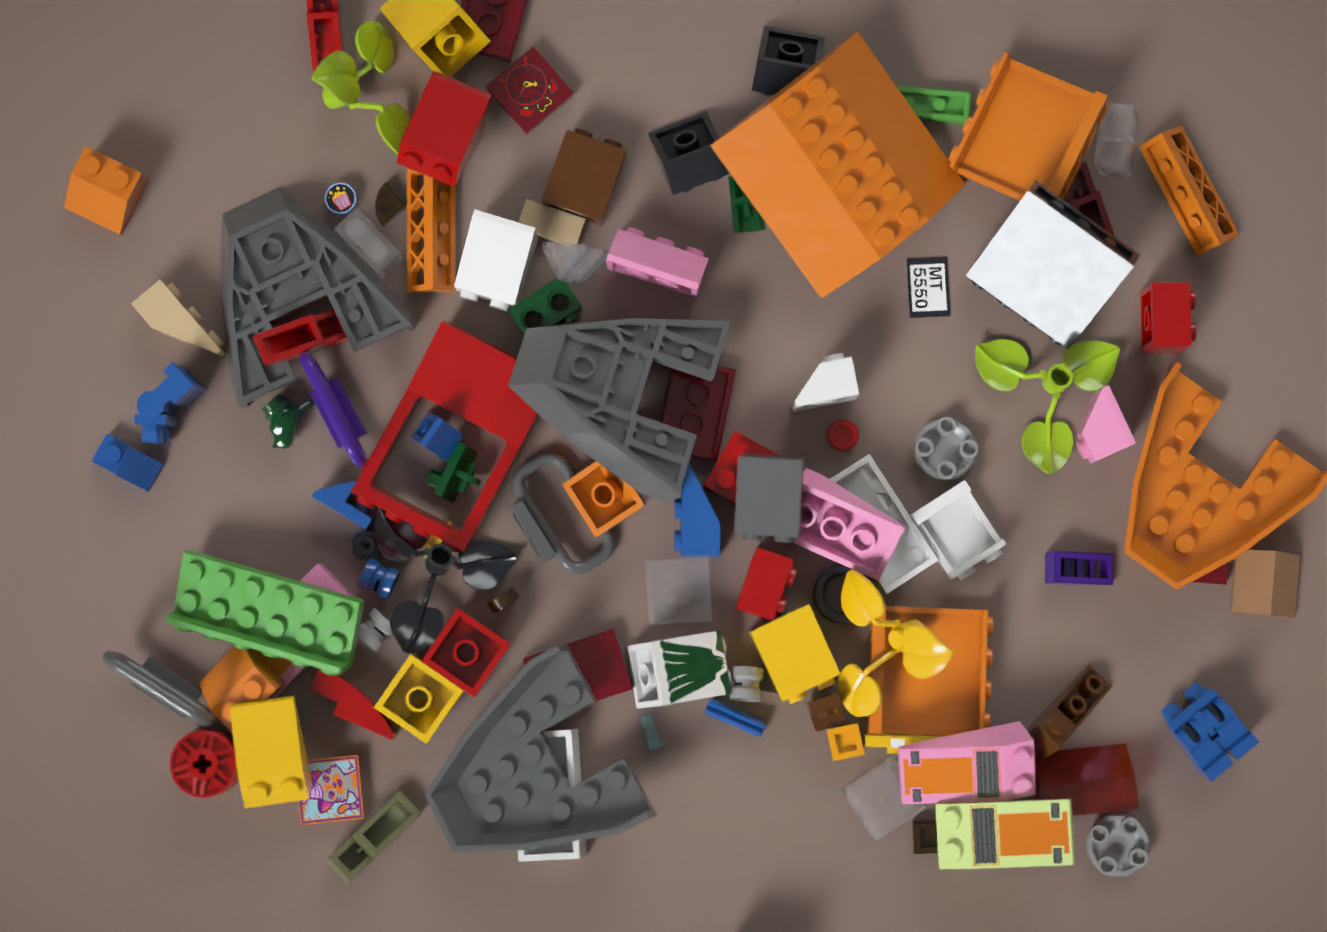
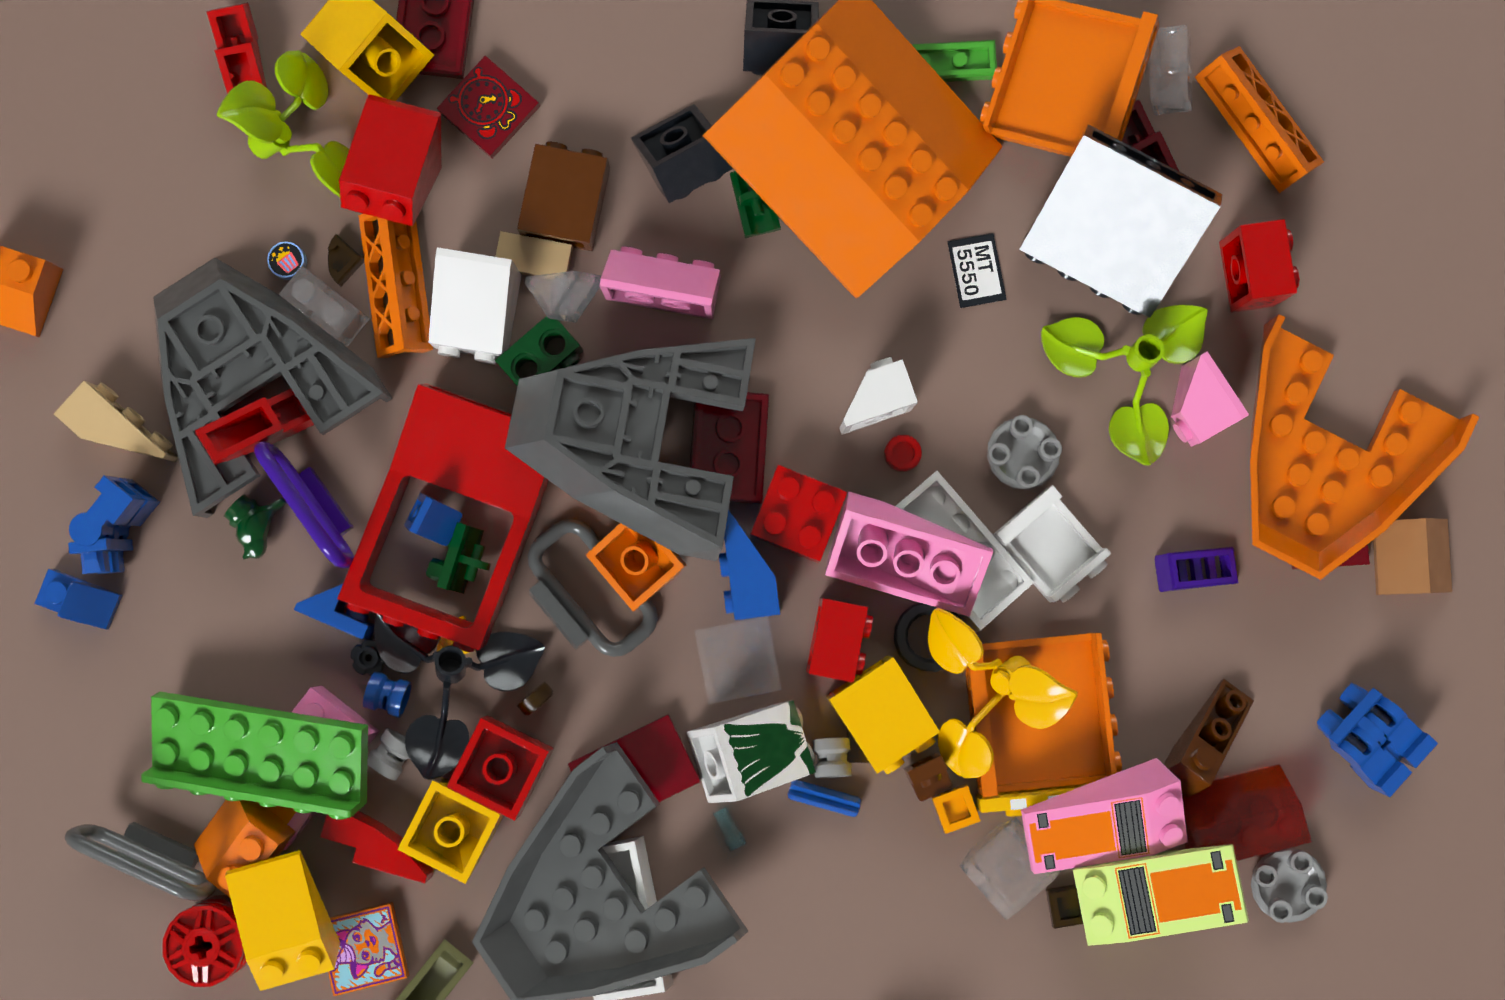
camera: 10 degrees left, 0 degrees up
(769, 496) = (829, 537): dark grey panel -> none

